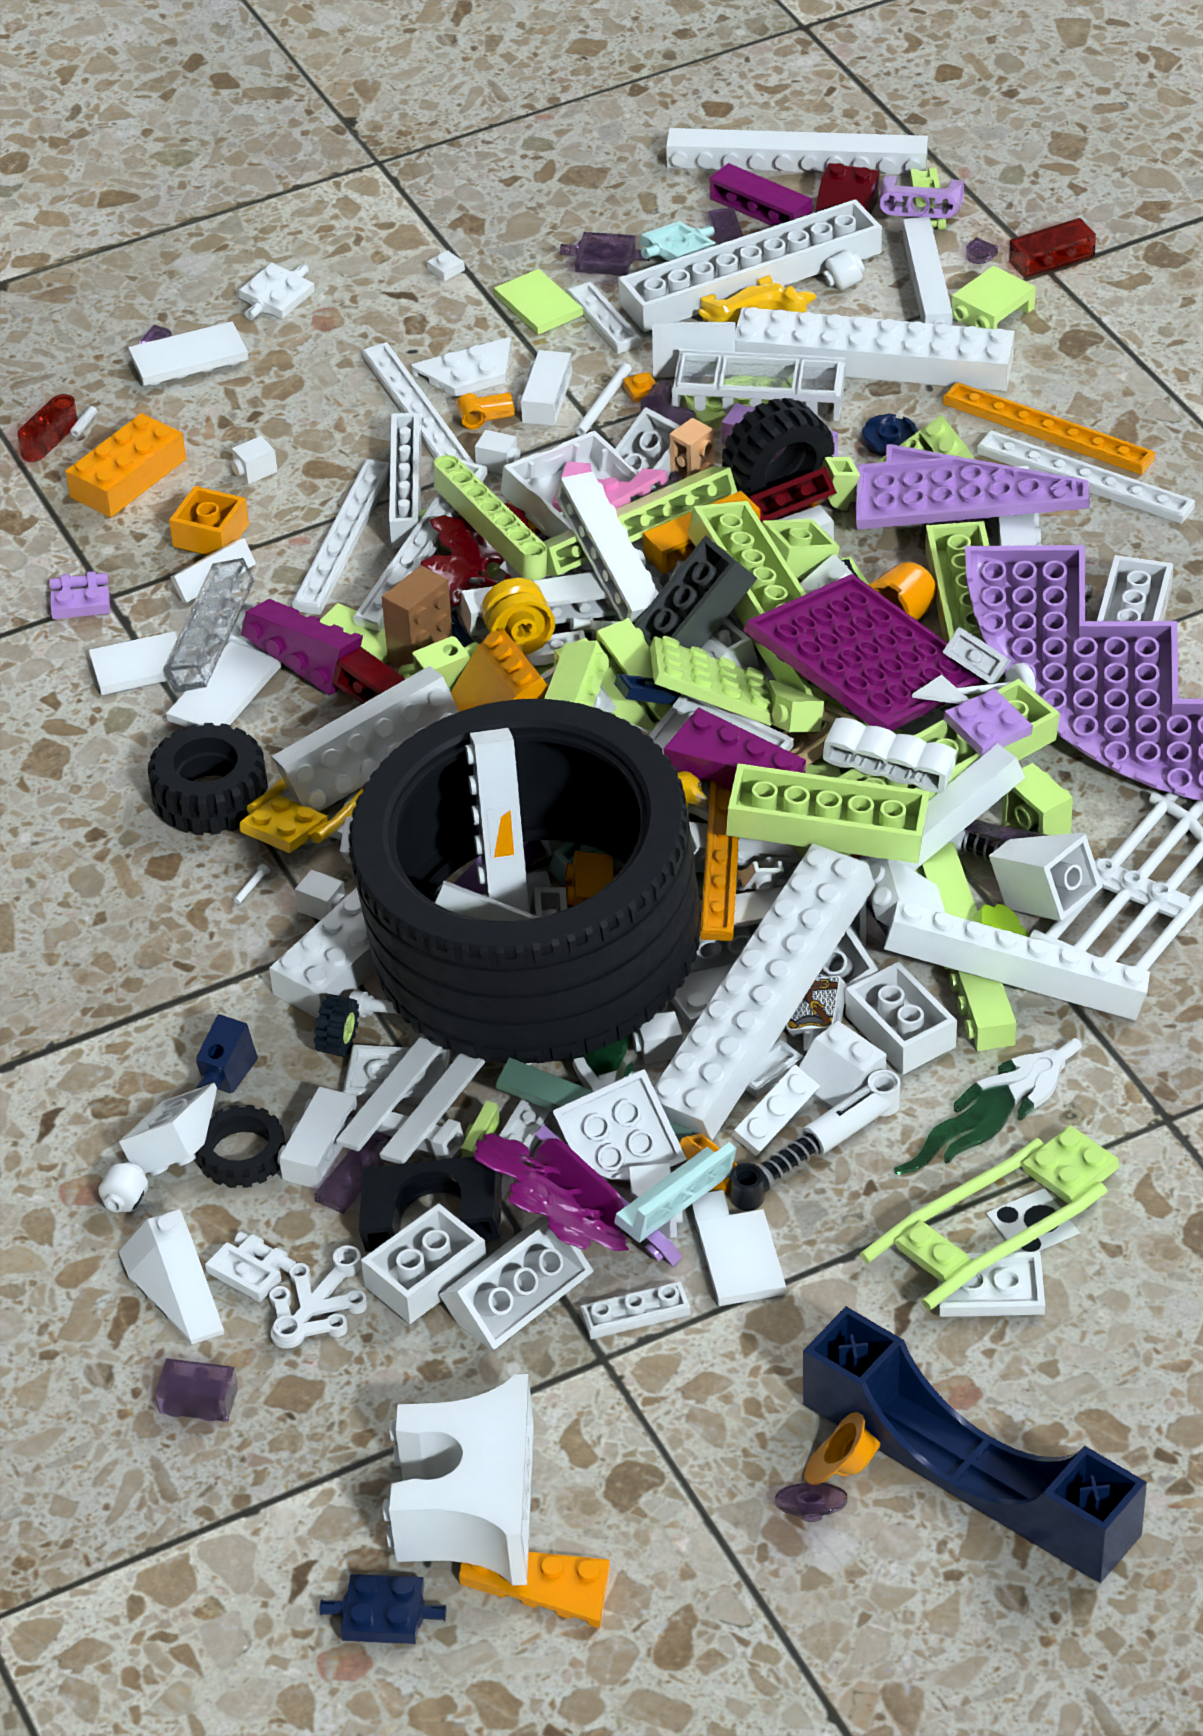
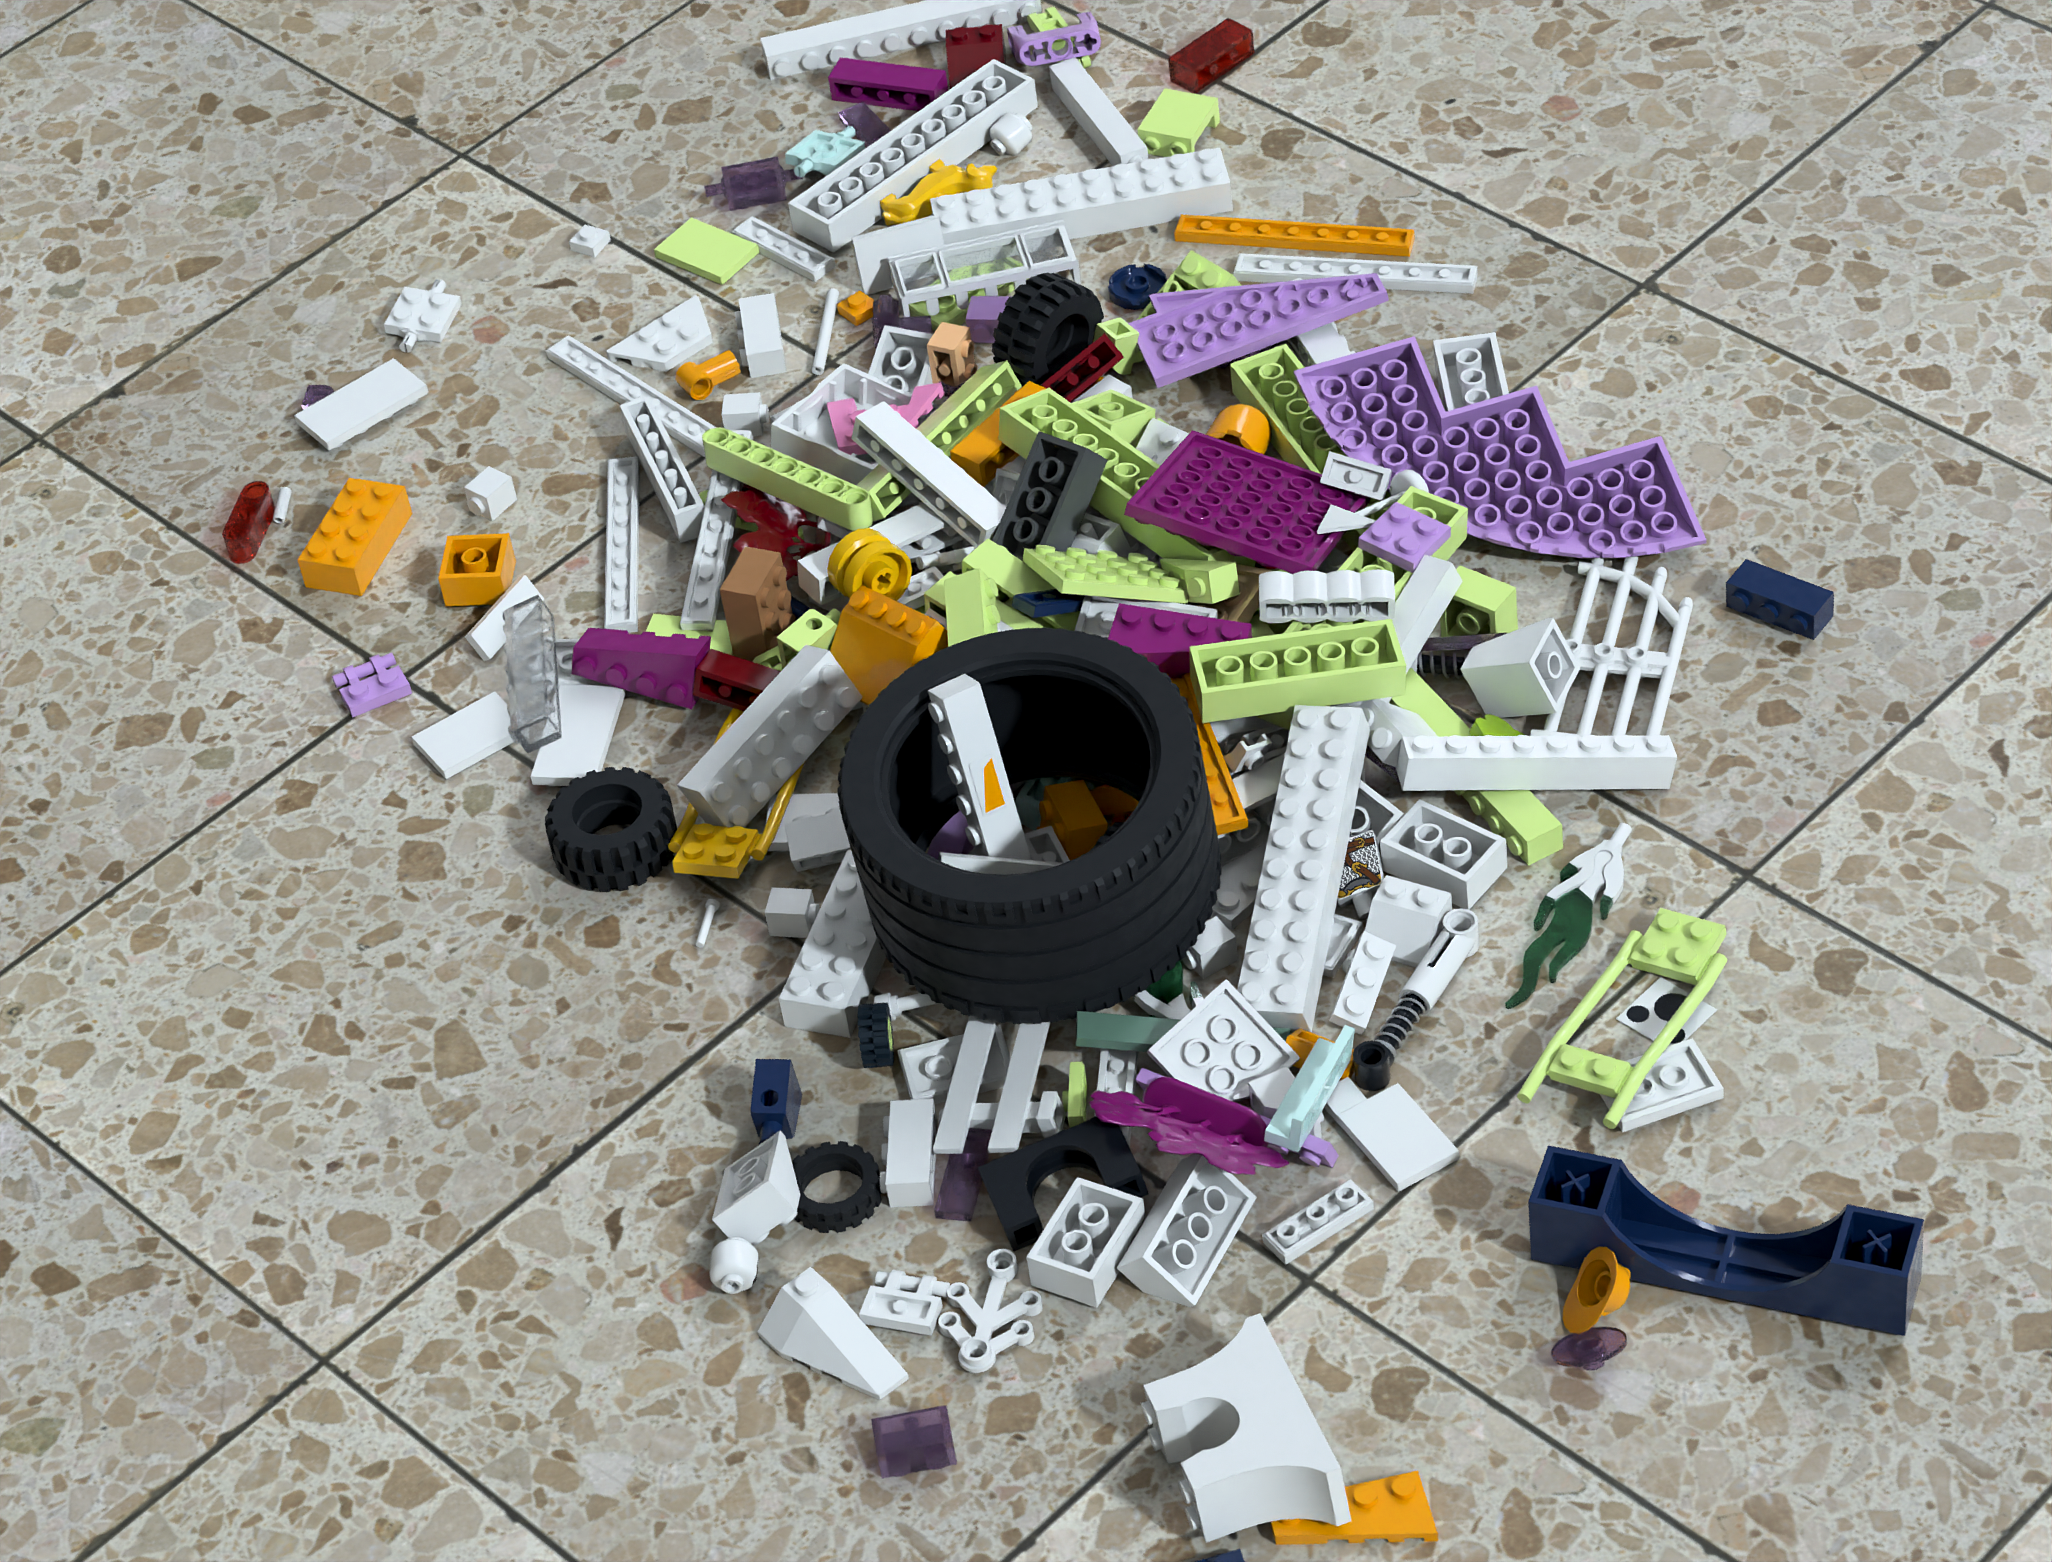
camera: 15 degrees left, 0 degrees up
(980, 251) = (1138, 78): clear purple tile -> none

